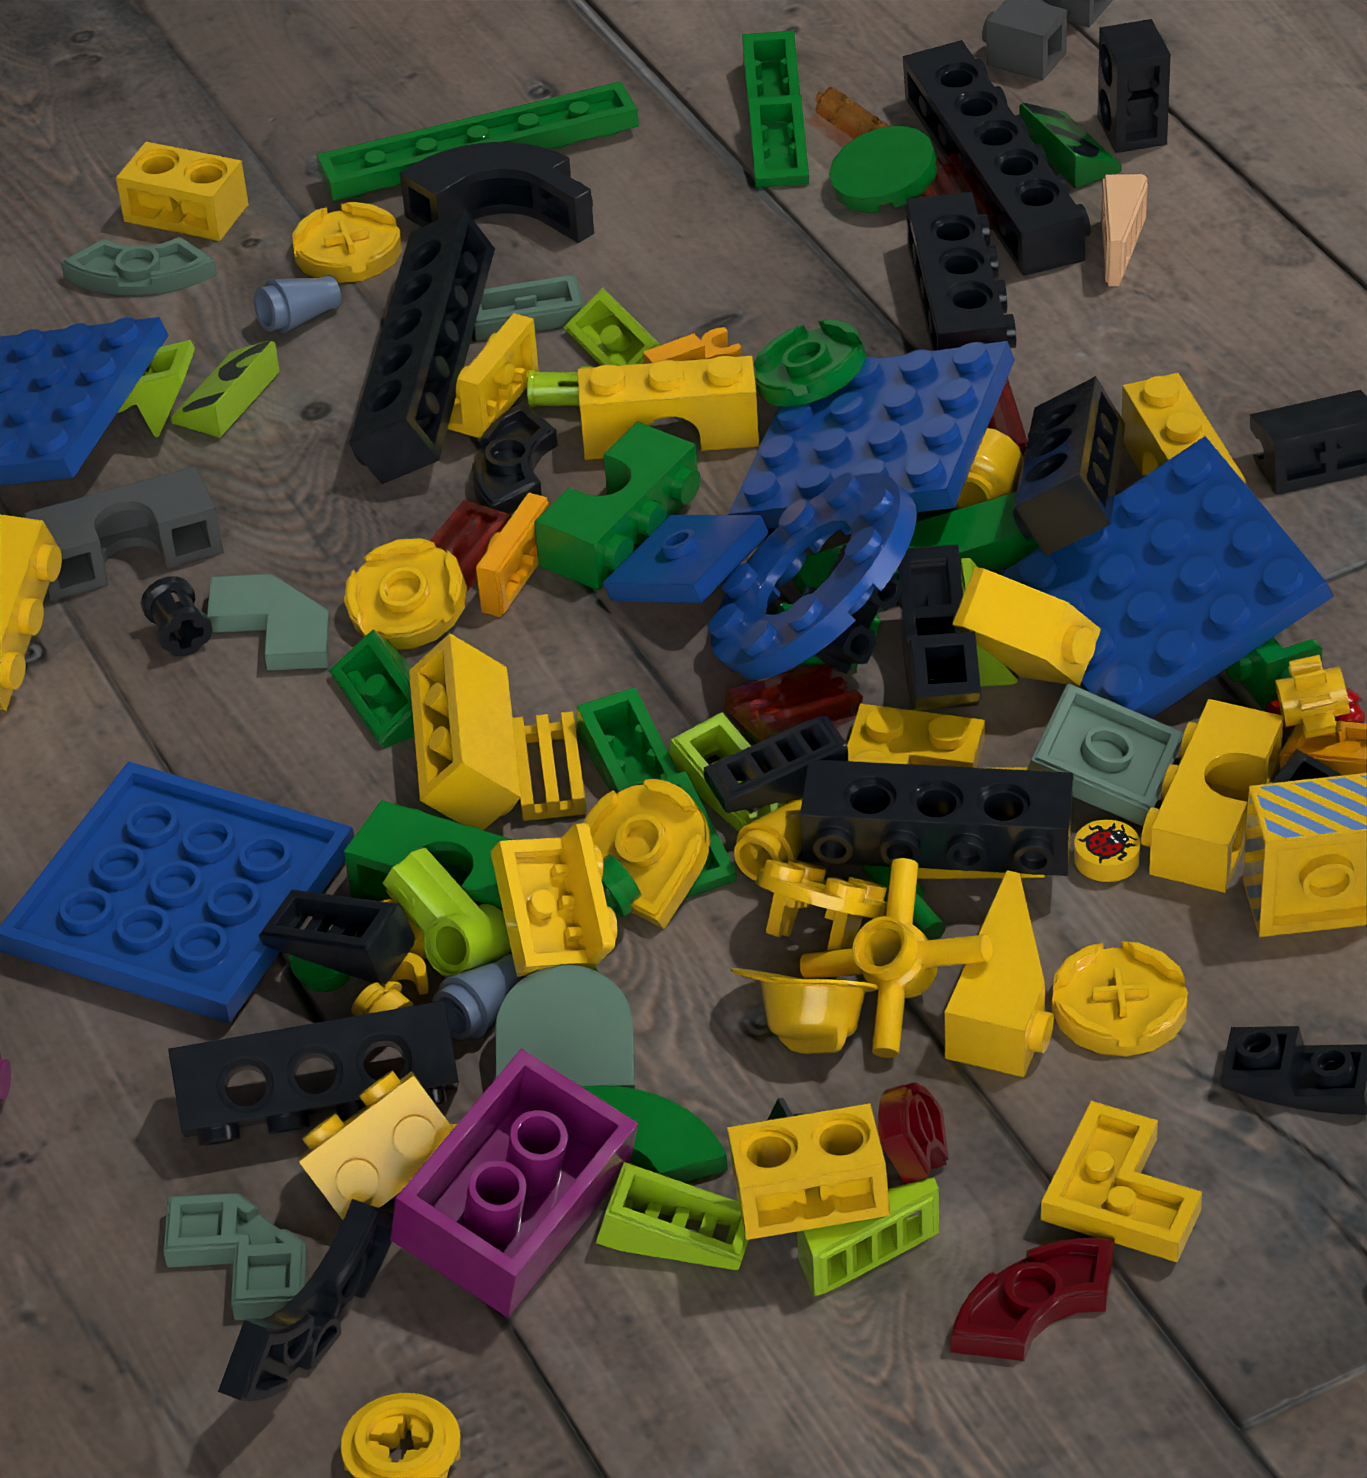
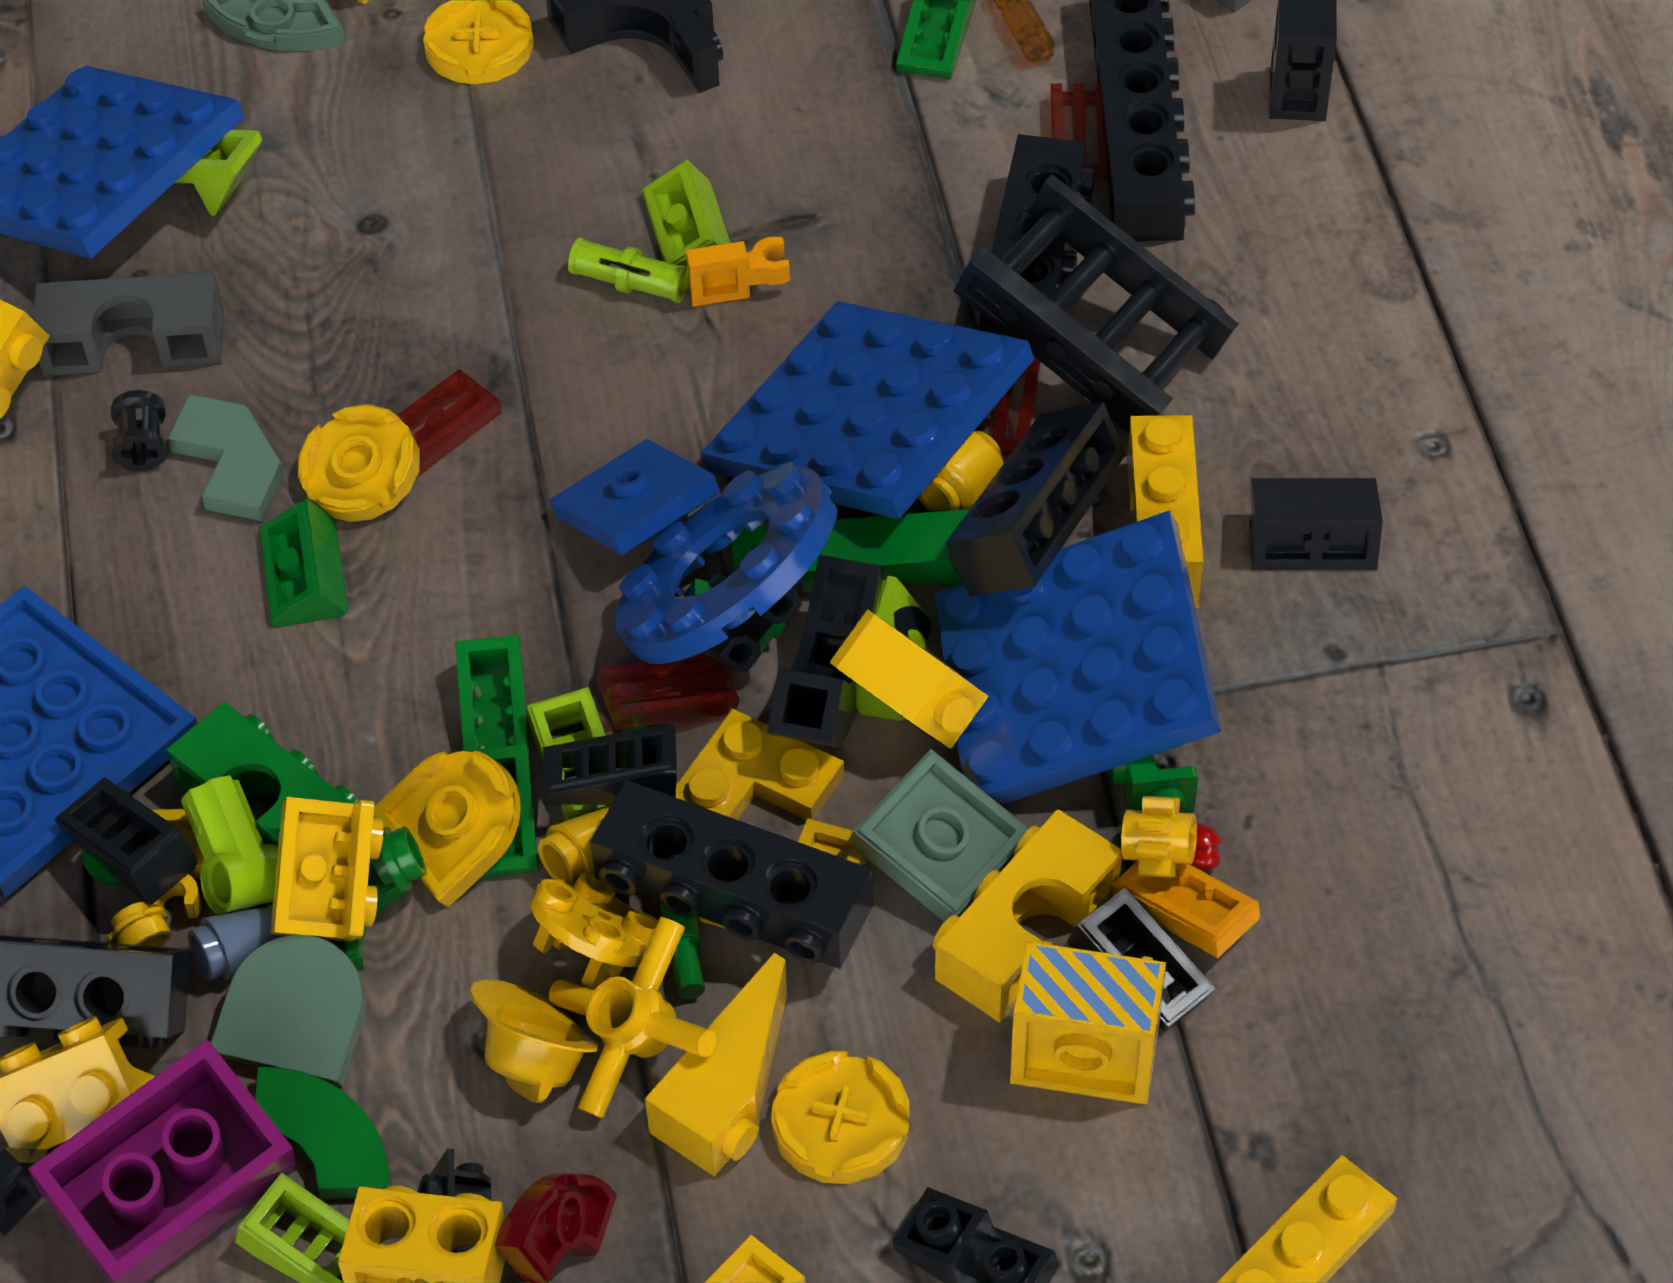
camera: 15 degrees right, 10 degrees up
(229, 389) = (297, 182): lime slope -> none
(292, 302) = (395, 98): sand blue cone -> none
(422, 347) = (486, 185): black brick -> none
(464, 734) = (338, 644): yellow brick -> none
(495, 377) = (536, 241): yellow bracket -> none
(509, 456) = (521, 332): black tile -> none
(510, 557) = (476, 447): light orange plate -> none
(544, 734) = (422, 653): yellow tile -> none
(548, 301) = (609, 161): sand green tile -> none
(646, 482) = (562, 444): green arch -> none
(709, 393) = (733, 314): yellow arch -> none
(808, 364) = (841, 304): green tile -> none
(883, 168) = (1022, 85): green tile -> none
(1041, 349) = (1061, 342): none -> black fence
(1068, 145) = (1221, 99): green slope -> none
(1107, 850) = (900, 944): yellow tile -> none
(1121, 221) = (1232, 206): light nougat slope -> none

